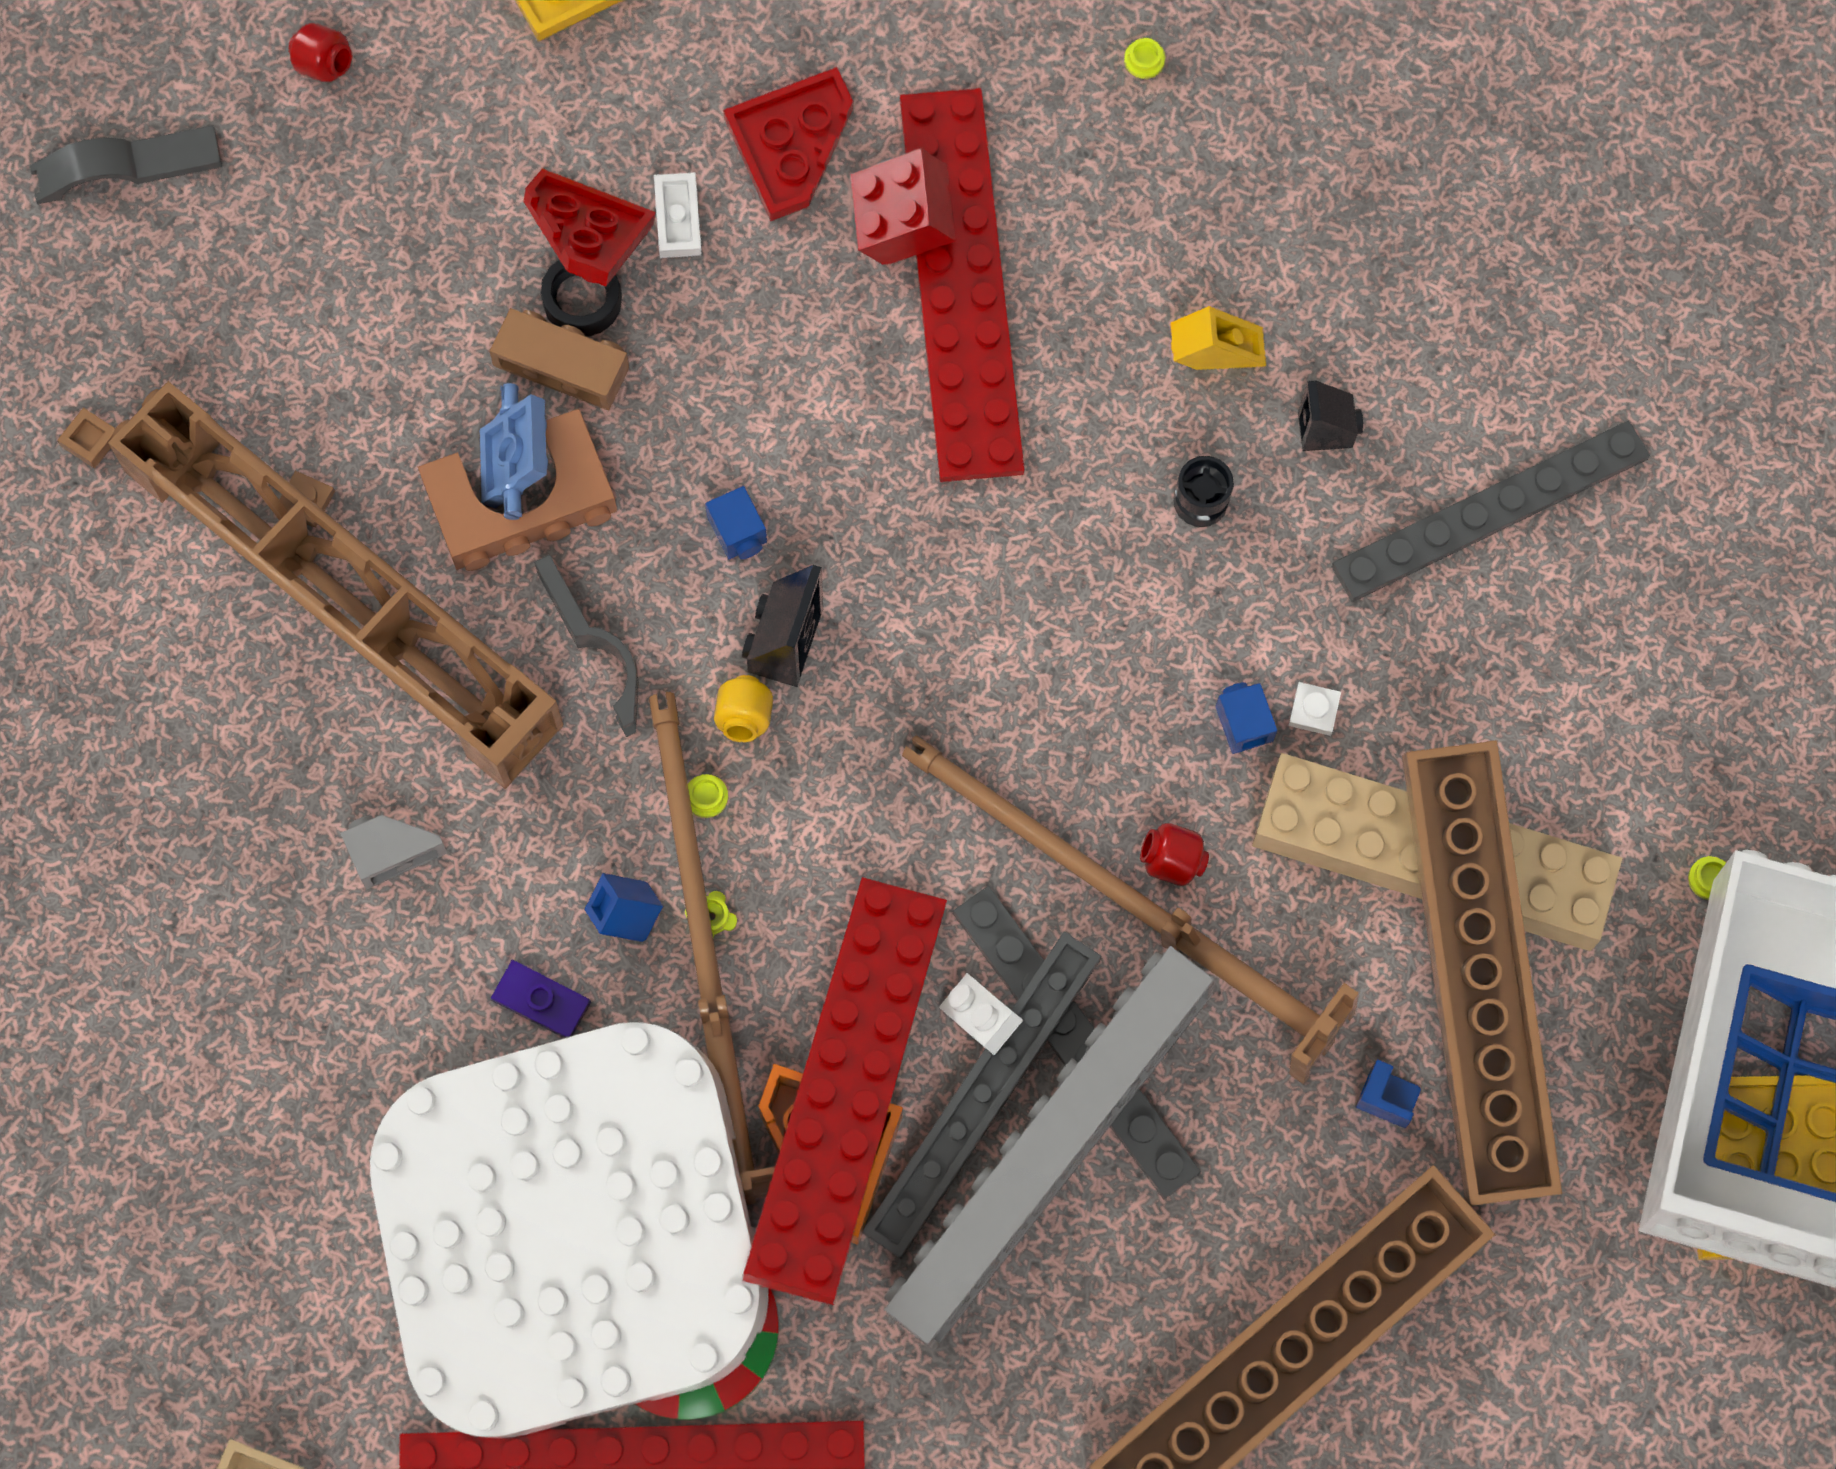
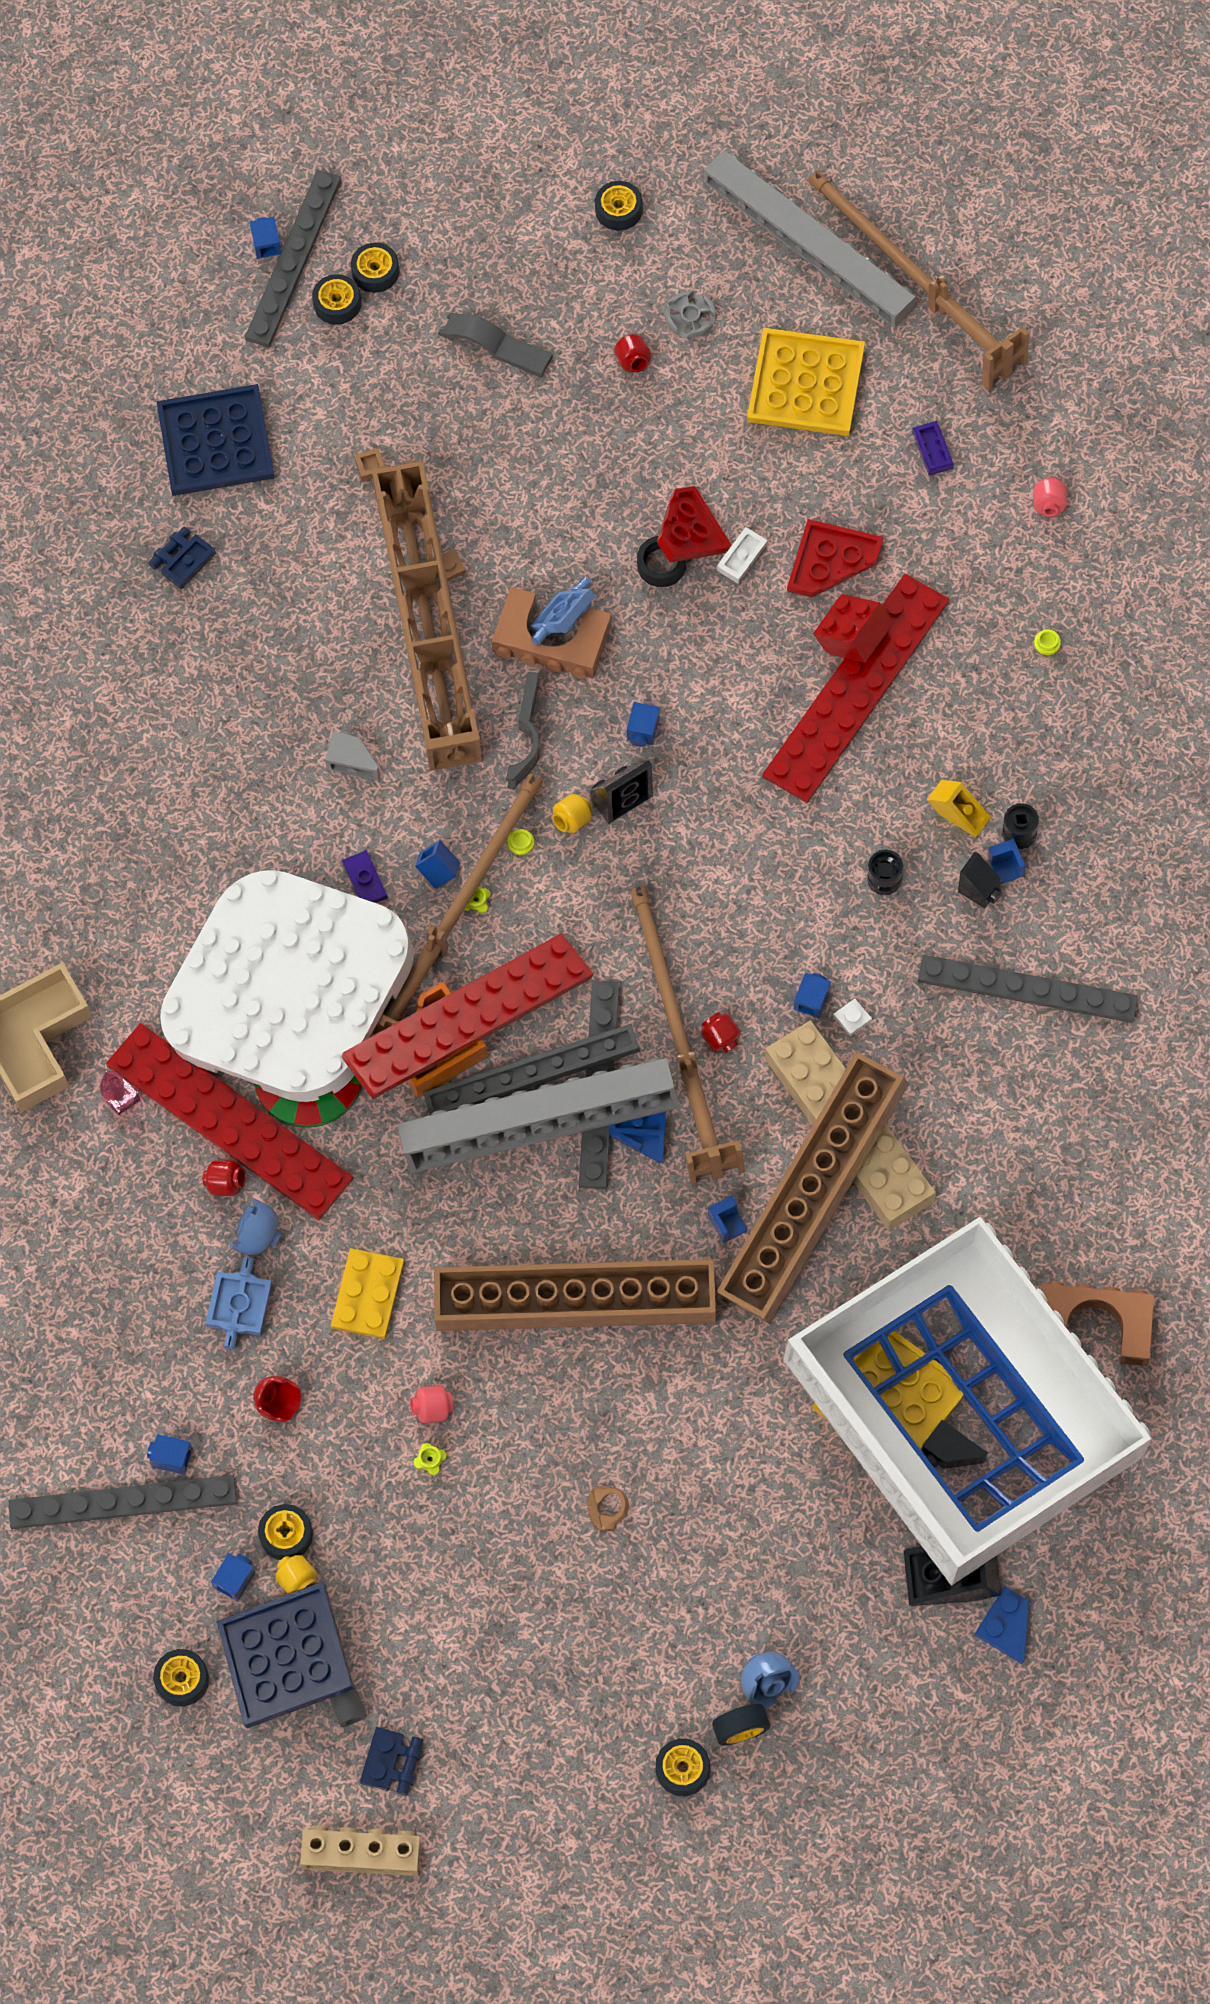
camera: 45 degrees right, 5 degrees down
(560, 358) = (625, 584): medium nougat brick -> none
(980, 1013) = (561, 1033): white plate -> none
(1192, 1066) = (643, 1135): none -> blue wing
(1315, 310) = (1021, 825): none -> black wheel
(1335, 364) = (1006, 861): none -> blue panel

